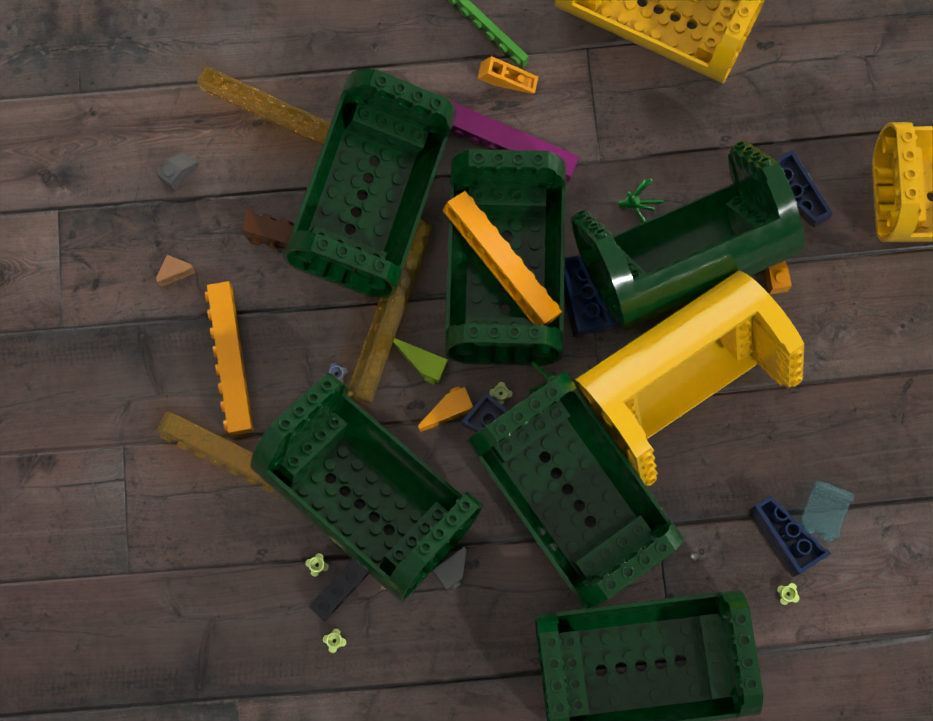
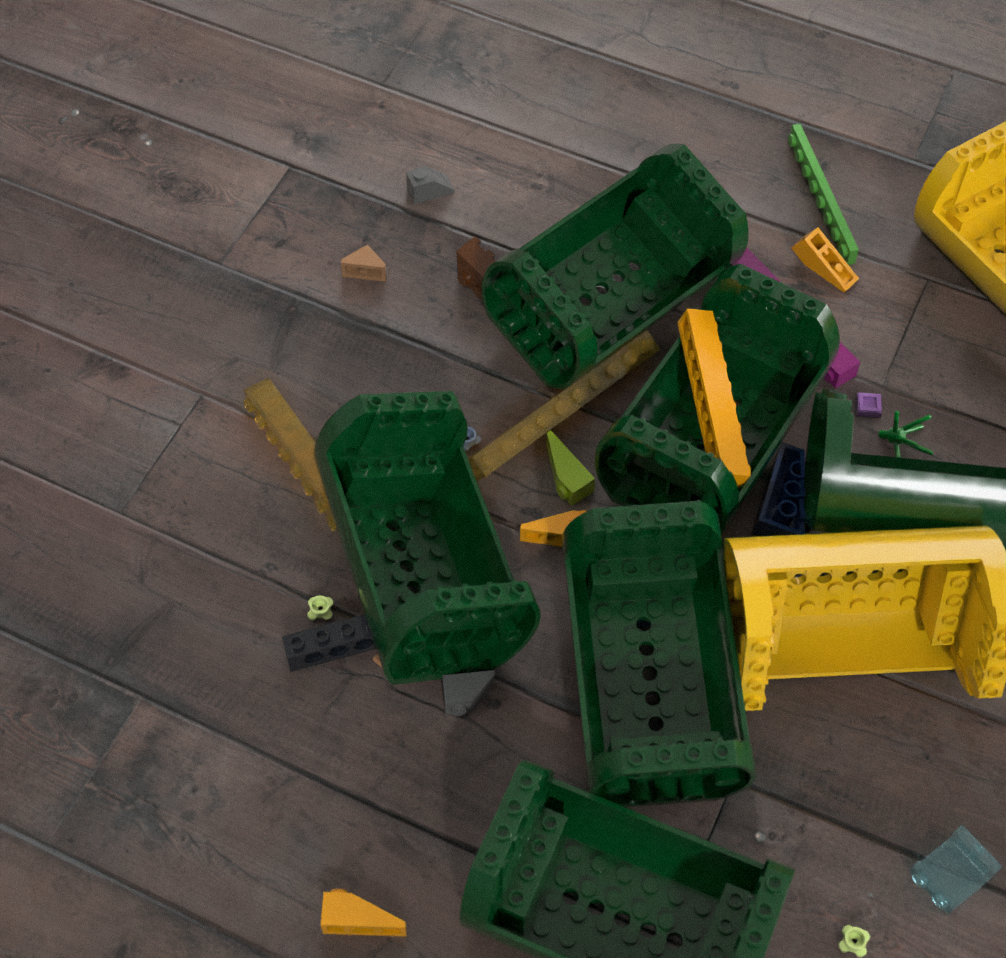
camera: 25 degrees right, 20 degrees down
(230, 358) = (372, 353): light orange brick -> none
(263, 105) = (545, 160): clear yellow brick -> none
(328, 639) = (286, 687): yellowish green plate -> none
(599, 184) = (868, 405): none -> medium lavender tile
(788, 538) = (889, 871): dark blue wedge -> none

